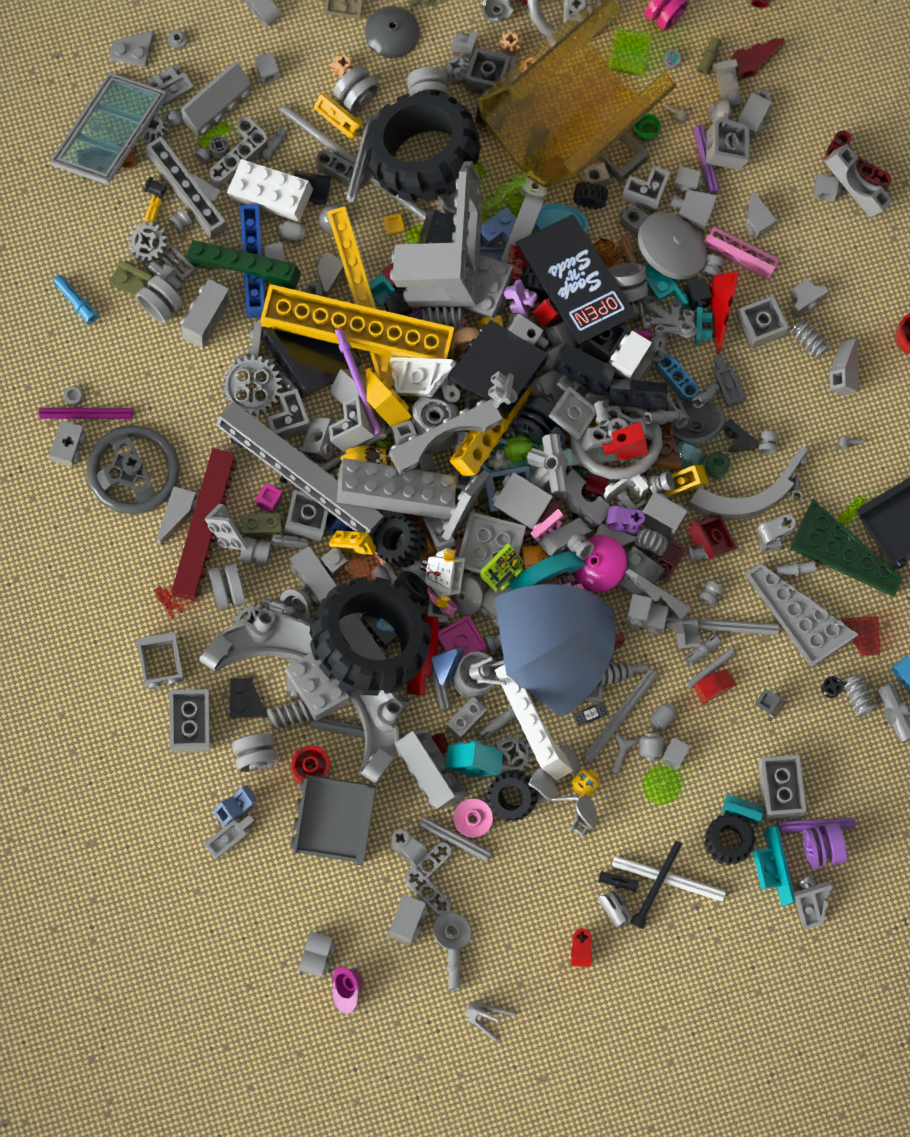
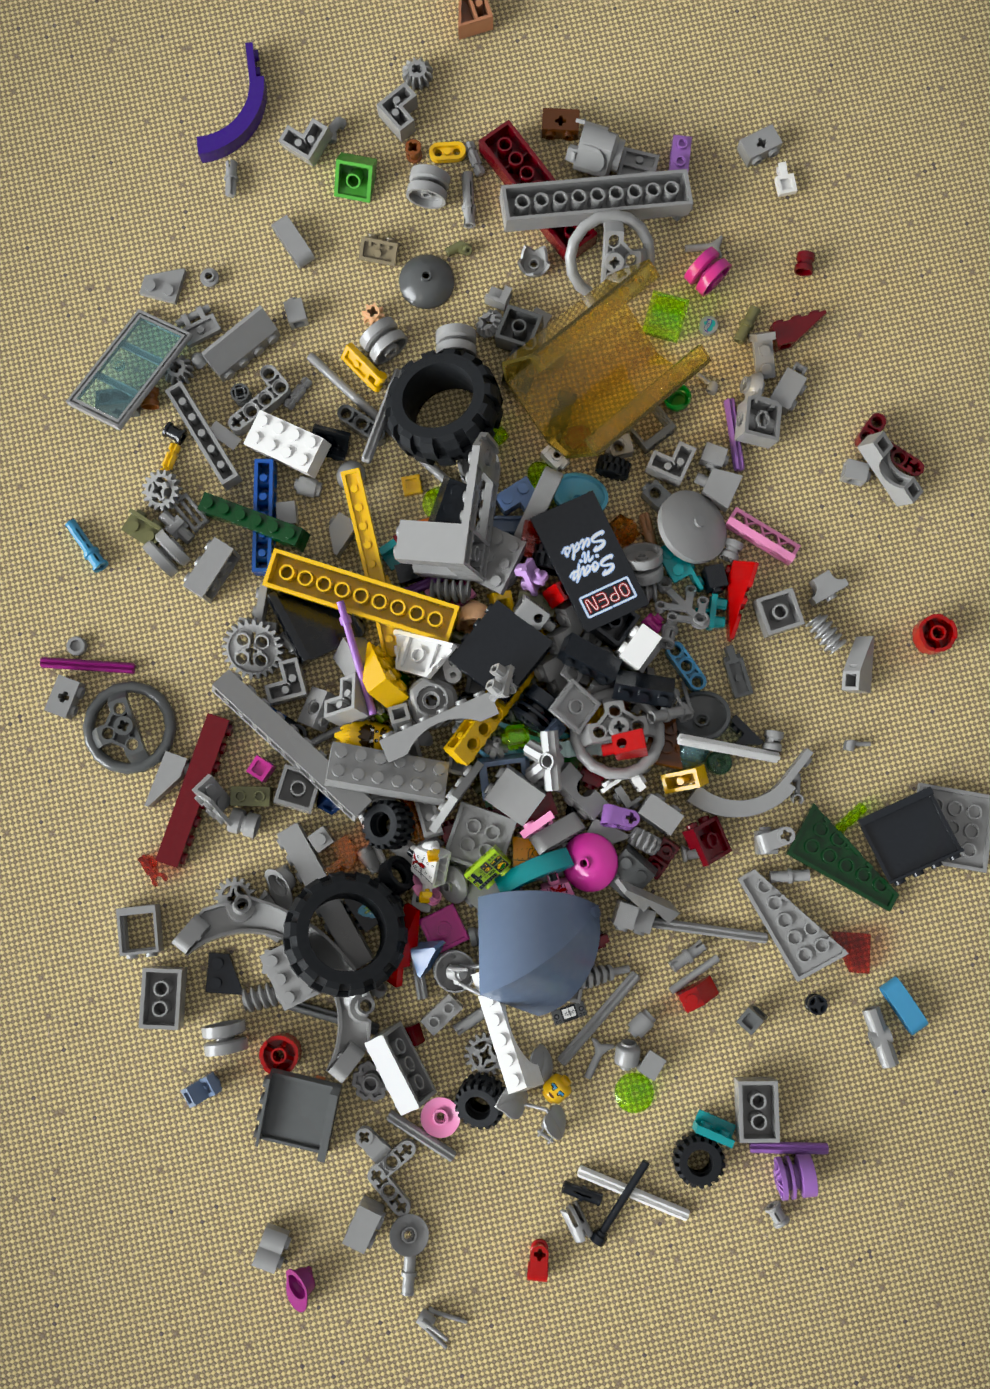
camera: 15 degrees right, 10 degrees up
(180, 220) = (196, 469): light grey wheel -> none
(203, 155) = (226, 401): light grey hinge -> none
(222, 129) = (240, 378): clear neon green axle -> none
(226, 586) = (209, 860): light grey wheel -> none
(229, 836) = (194, 1118): light grey hinge -> none
(279, 607) = (262, 884): light grey axle -> none
(289, 541) = (279, 814): light grey axle -> none
(310, 288) = (325, 552): light grey plate -> none
(353, 542) = (339, 823): yellow bracket -> none
(401, 789) = (368, 1082): none -> flat silver plant
(474, 759) = (444, 1062): teal brick -> none
(503, 191) = (523, 460): clear neon green wing -> none
(505, 42) = (545, 305): light nougat gear -> none
(579, 545) = (571, 846): light grey wheel -> none
(603, 417) = (604, 710): light grey pin -> none
(661, 482) = (659, 781): light grey wheel -> none
(687, 634) = (673, 939): light grey panel -> none
(706, 395) = (713, 688): light grey pin -> none
(710, 594) = (699, 898): light grey wheel -> none
(725, 448) = (728, 748): none -> white axle
(759, 218) = (782, 500): light grey slope -> none
(773, 868) = (740, 1191): teal bracket -> none
(812, 904) = (778, 1236): light grey wing -> none
(858, 695) = (845, 1016): light grey piece -> none

